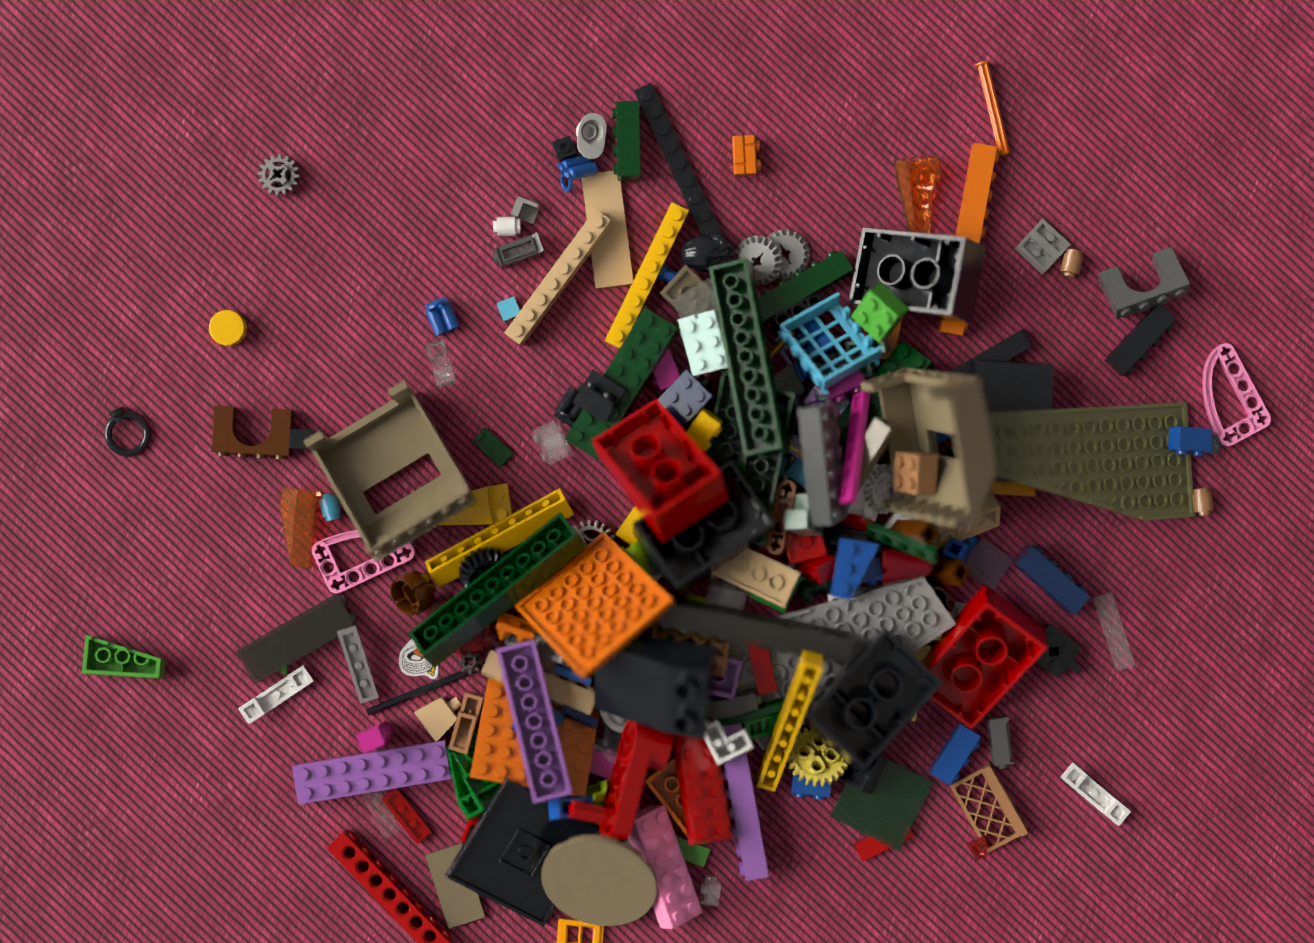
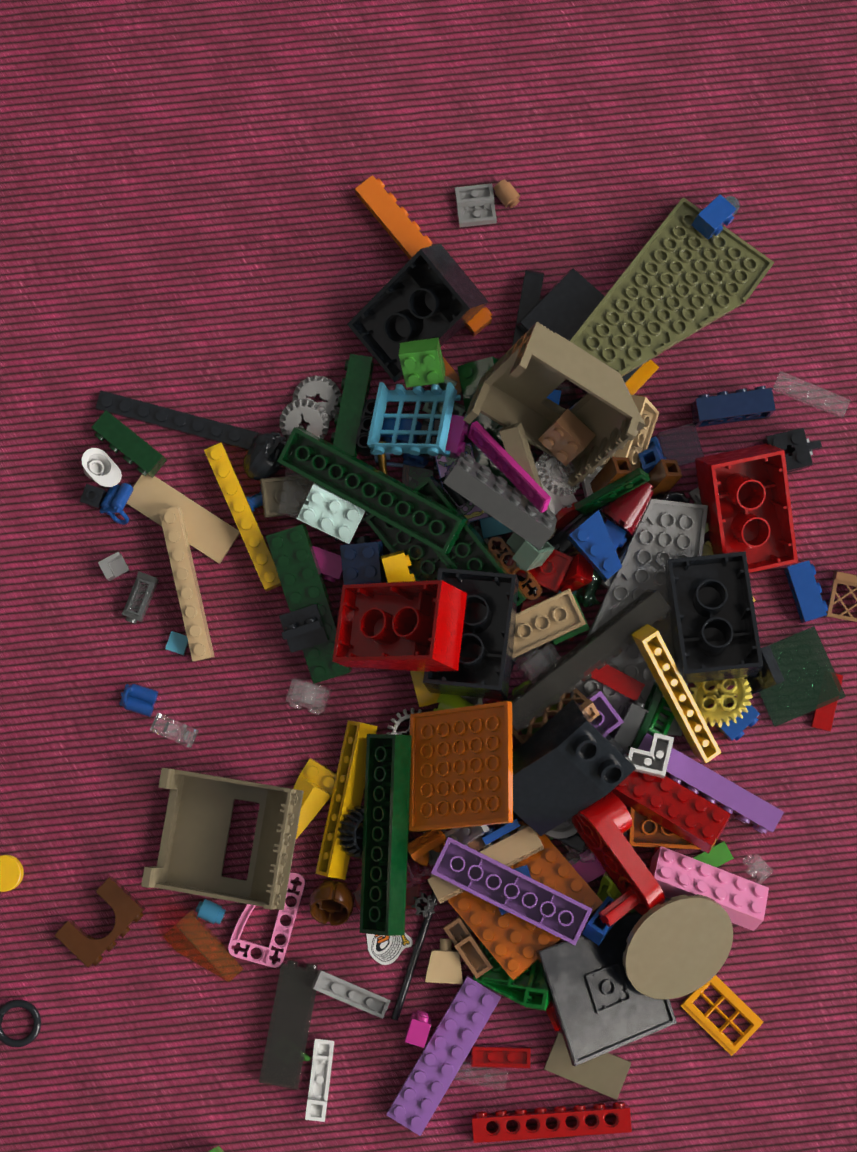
camera: 55 degrees left, 5 degrees down
(298, 436) = (135, 890): black brick -> none
(493, 447) = (272, 745): dark green tile -> none
(507, 226) = (113, 590): white brick -> none
(566, 410) = (293, 663): black piece -> none
(579, 716) = (537, 854): clear blue tile -> none
(744, 155) = (216, 366): orange brick -> none
(917, 188) = (350, 258): clear orange wedge -> none
(993, 107) = (340, 154): orange axle -> none
(999, 741) = (824, 549): dark grey window -> none
(1127, 301) = (570, 176): dark grey arch -> none
(1140, 339) = (607, 192): black brick -> none
(1202, 501) = (768, 247): medium nougat brick -> none
(1243, 396) = (715, 144): bright pink beam -> none

